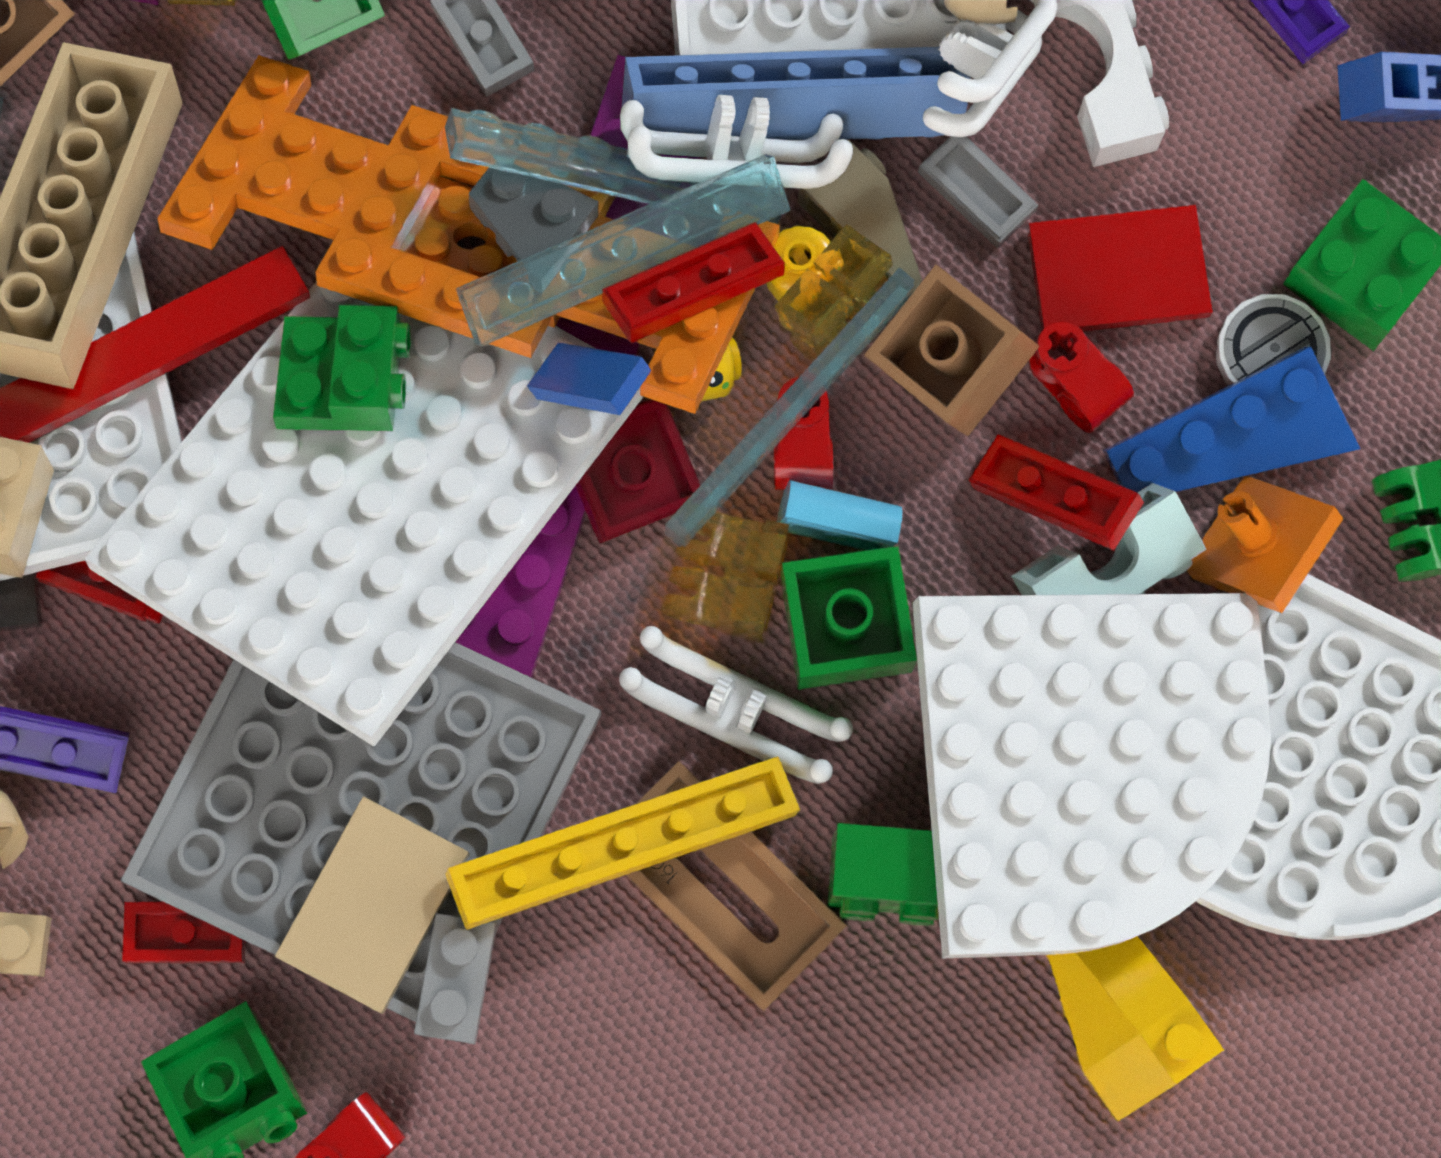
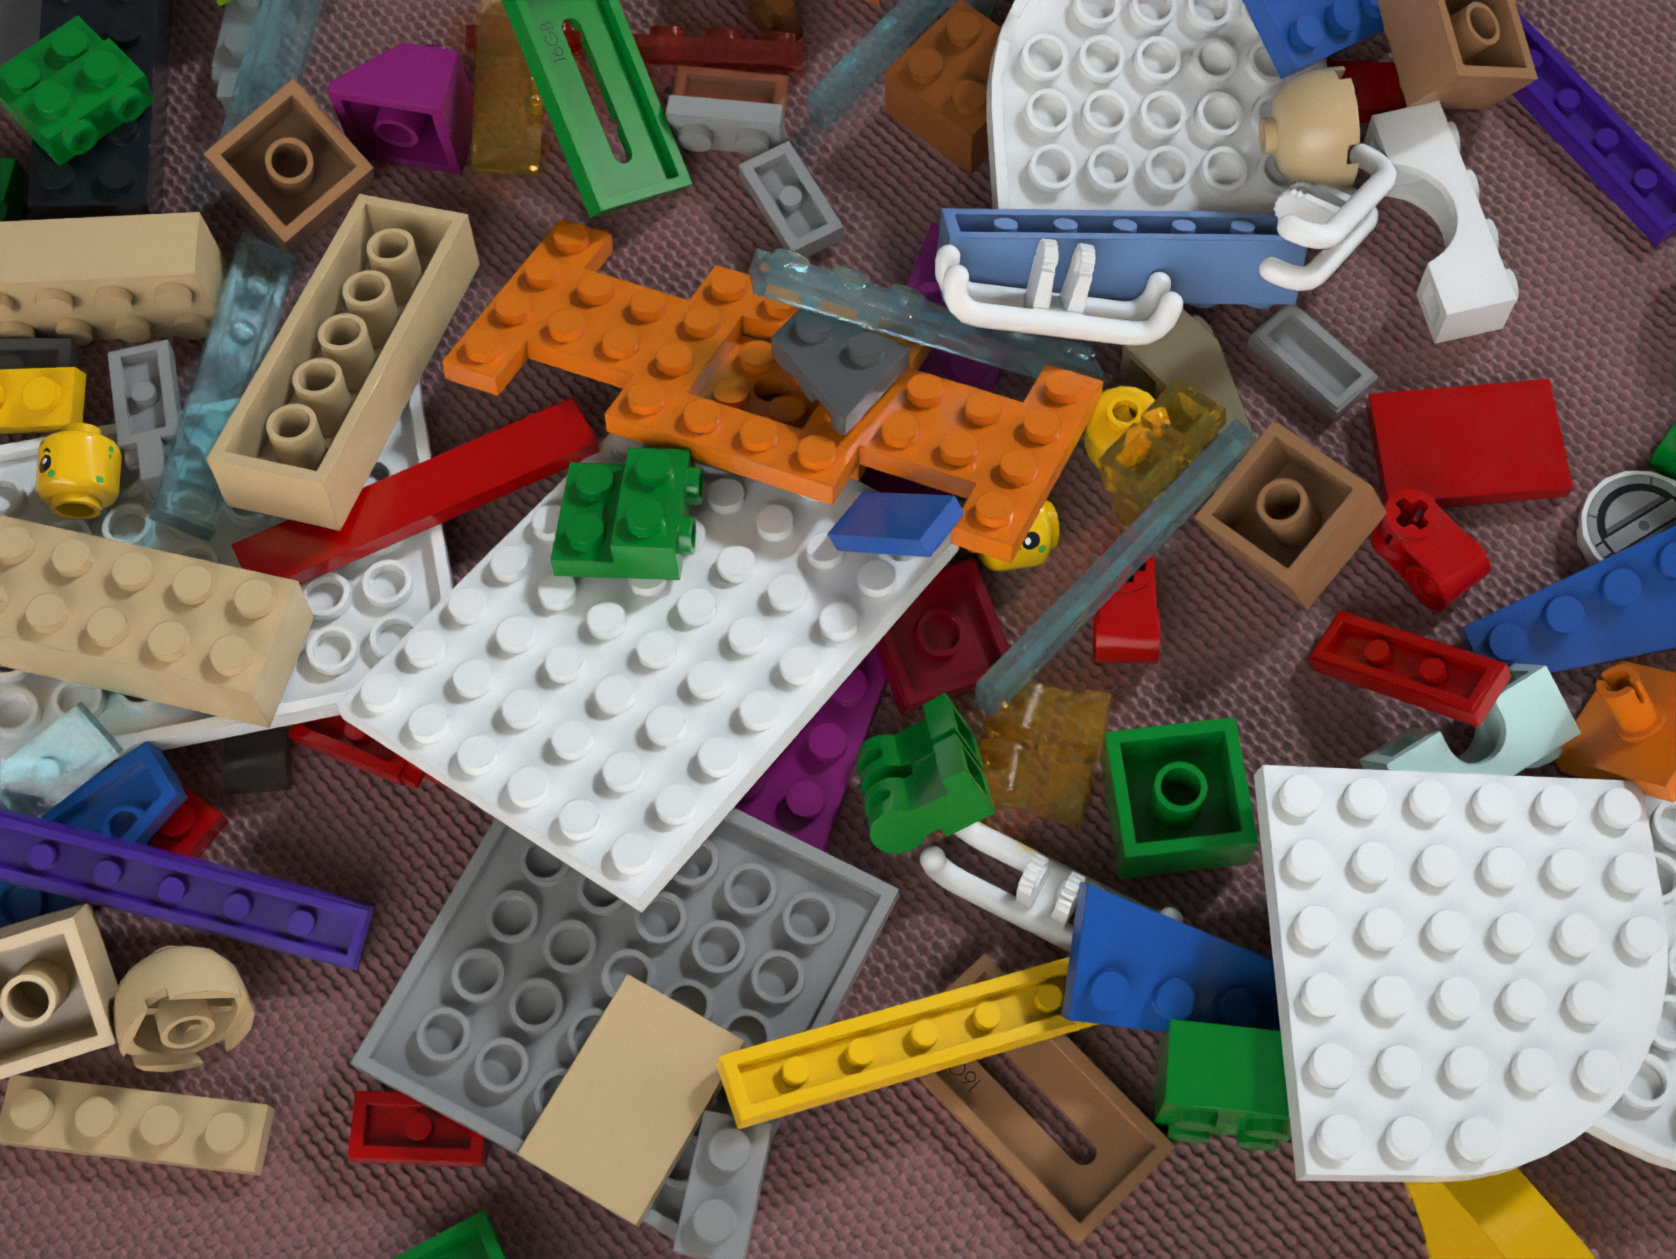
camera: 10 degrees right, 10 degrees down
(620, 249) = (933, 392): clear light blue tile -> none
(620, 608) = (923, 779): none -> green legs
(693, 282) = (1010, 427): red tile -> none
(826, 777) = (1147, 968): none -> blue wing
(839, 517) = (1165, 690): medium azure brick -> none

